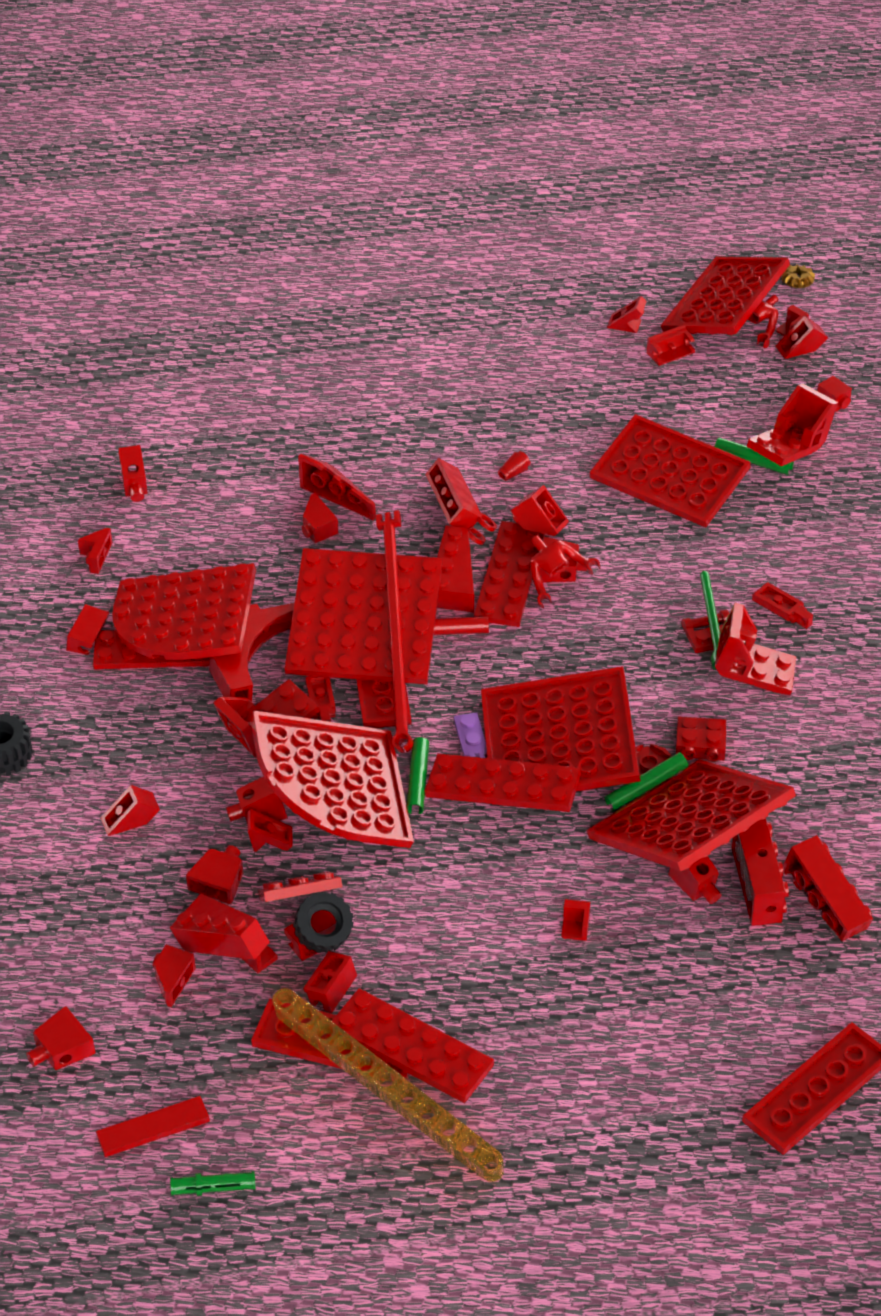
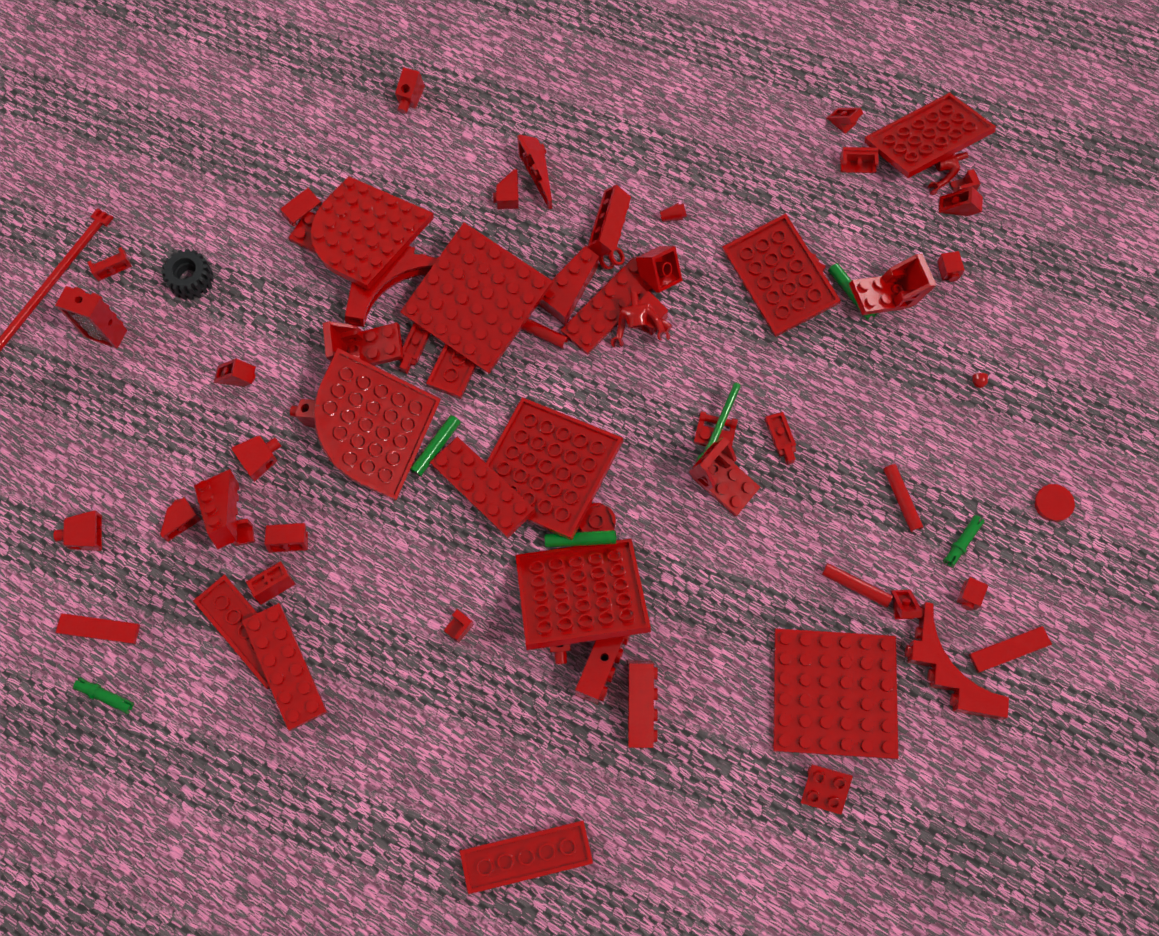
camera: 30 degrees right, 25 degrees up
(96, 548) = (350, 142): red slope -> none
(268, 830) = (306, 439): red slope -> none
(299, 886) = (290, 502): plate -> none
(337, 908) = (274, 551): black tyre -> none
(388, 527) = (528, 233): red hinge -> none
(391, 1094) = (254, 696): clear yellow beam -> none
(470, 735) = (491, 432): medium lavender hinge -> none
(701, 738) = (645, 520): red plate -> none
(791, 279) = (1006, 146): pearl gold gear -> none

